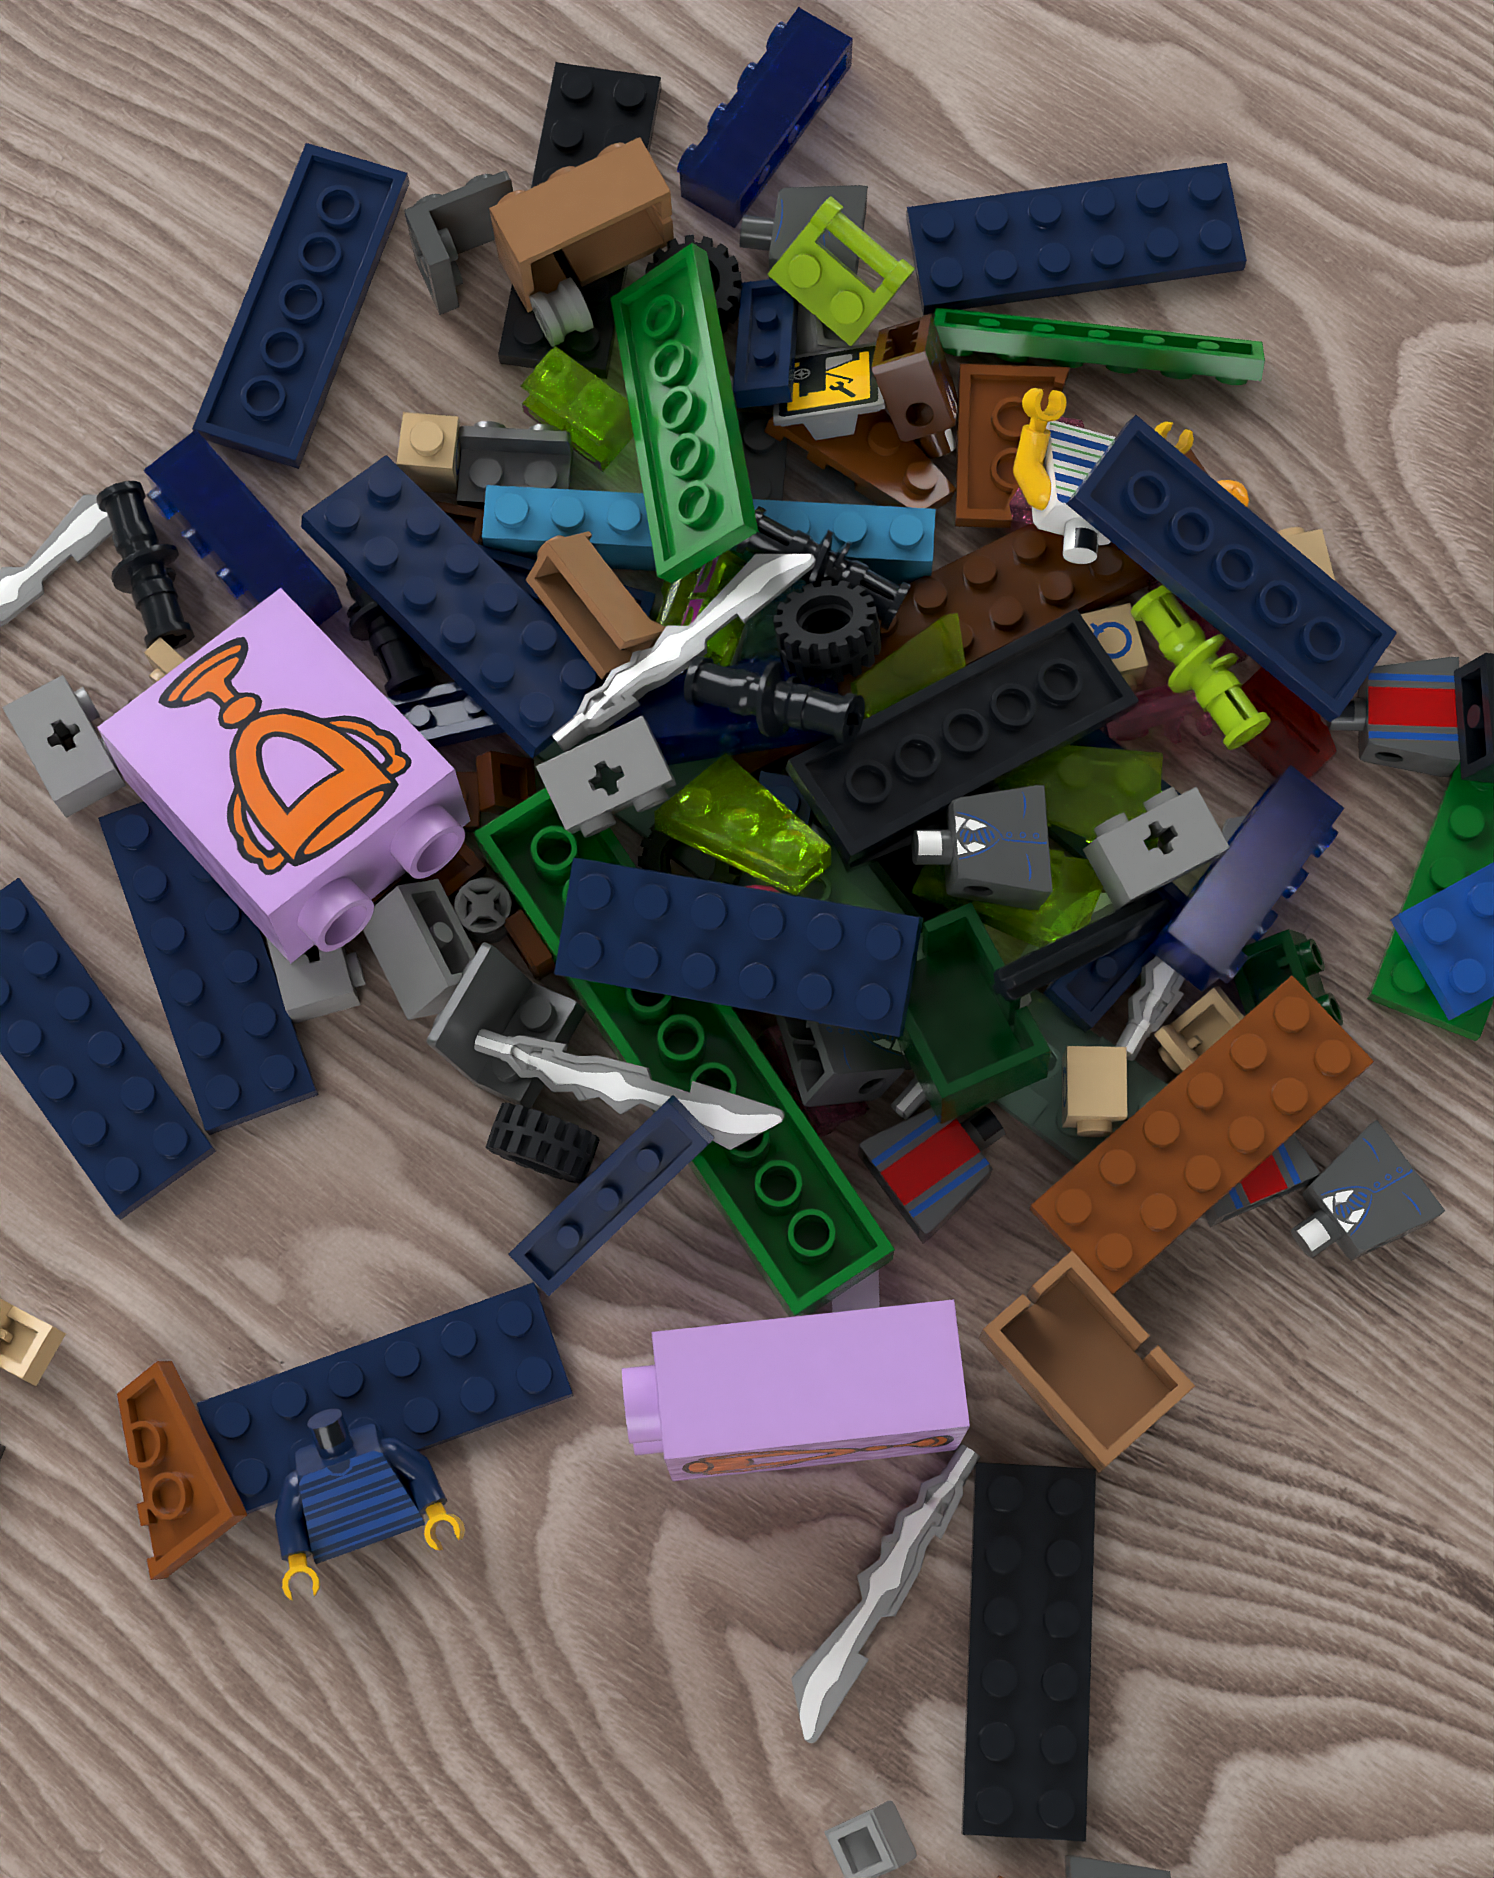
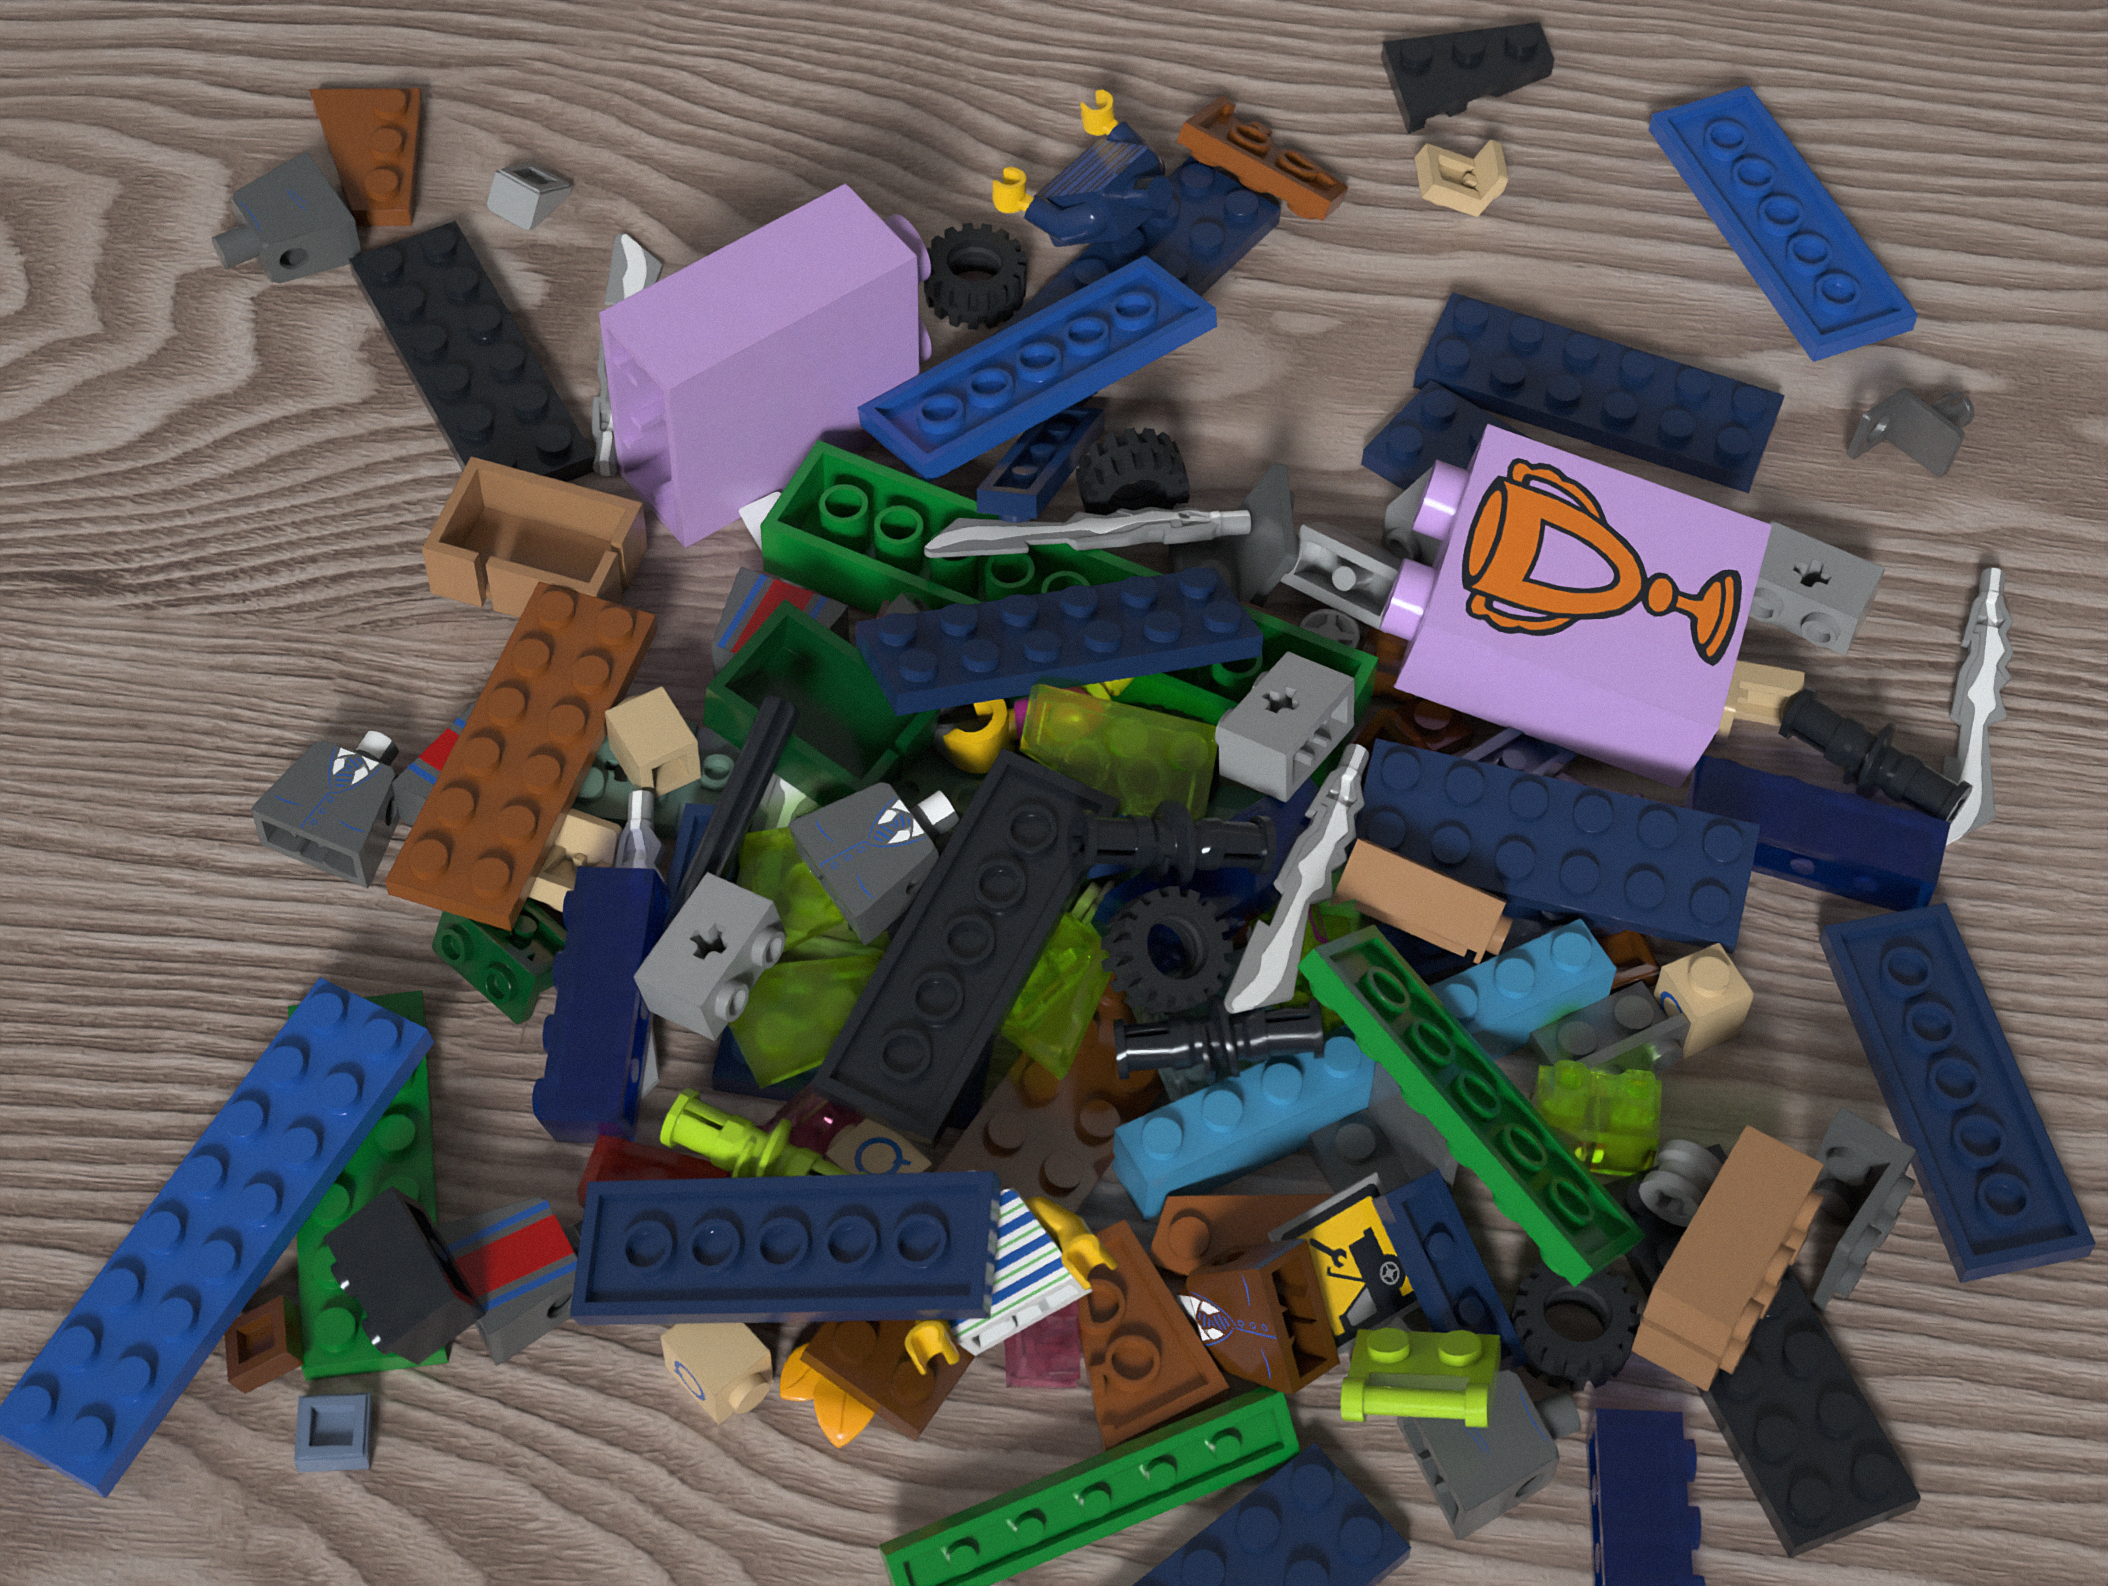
camera: 145 degrees right, 20 degrees down
(491, 1458) = (974, 300): none -> black tyre
(543, 1299) = (1036, 368): none -> blue plate

